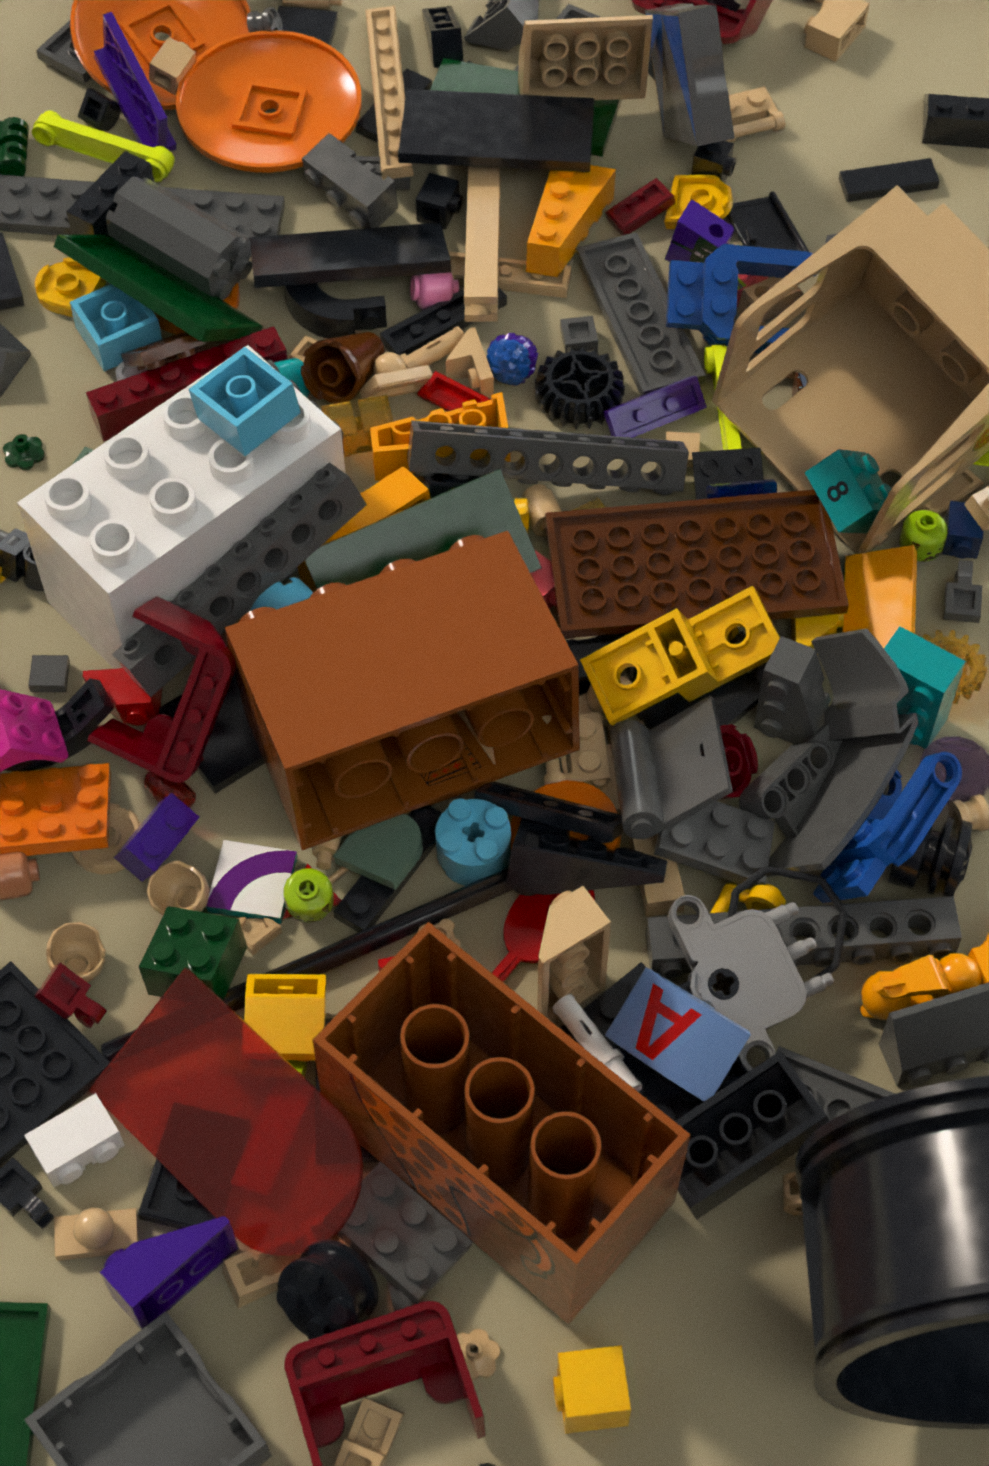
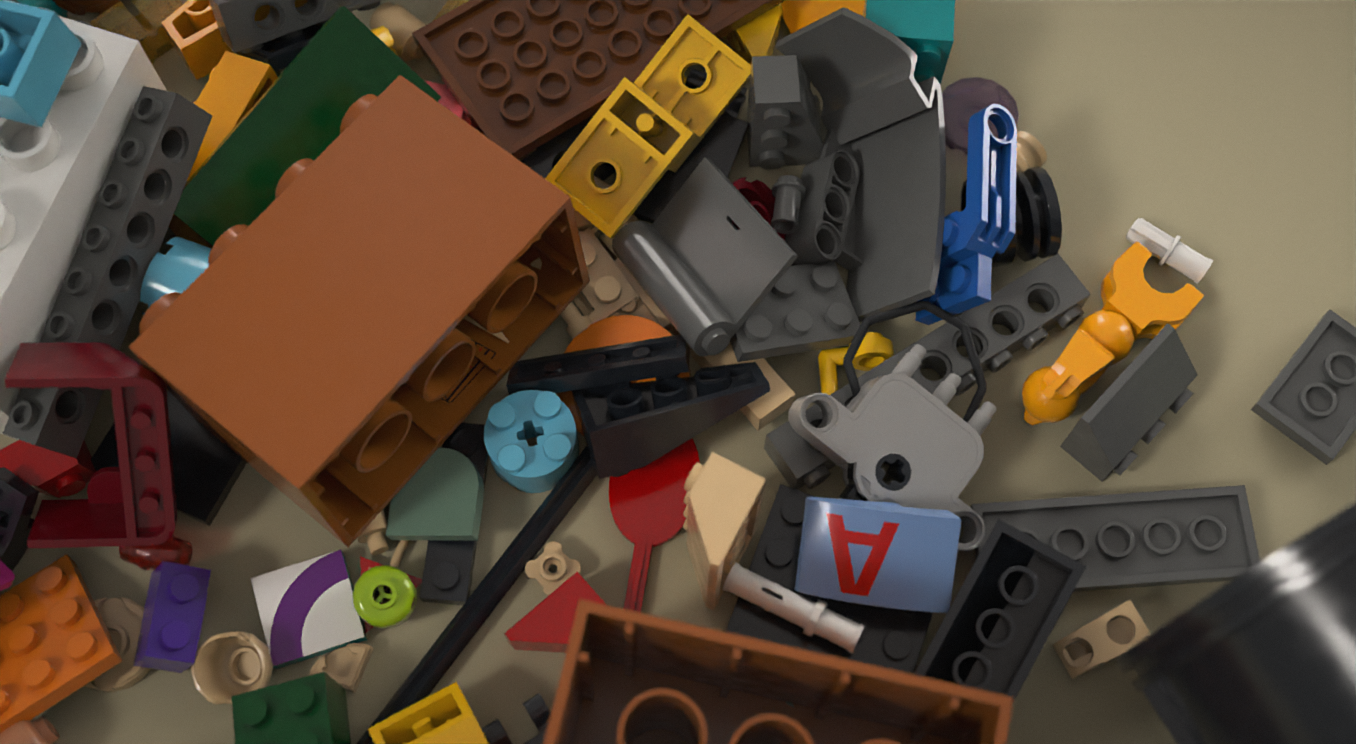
camera: 30 degrees left, 10 degrees up
(765, 754) = (788, 196): none -> dark grey pin

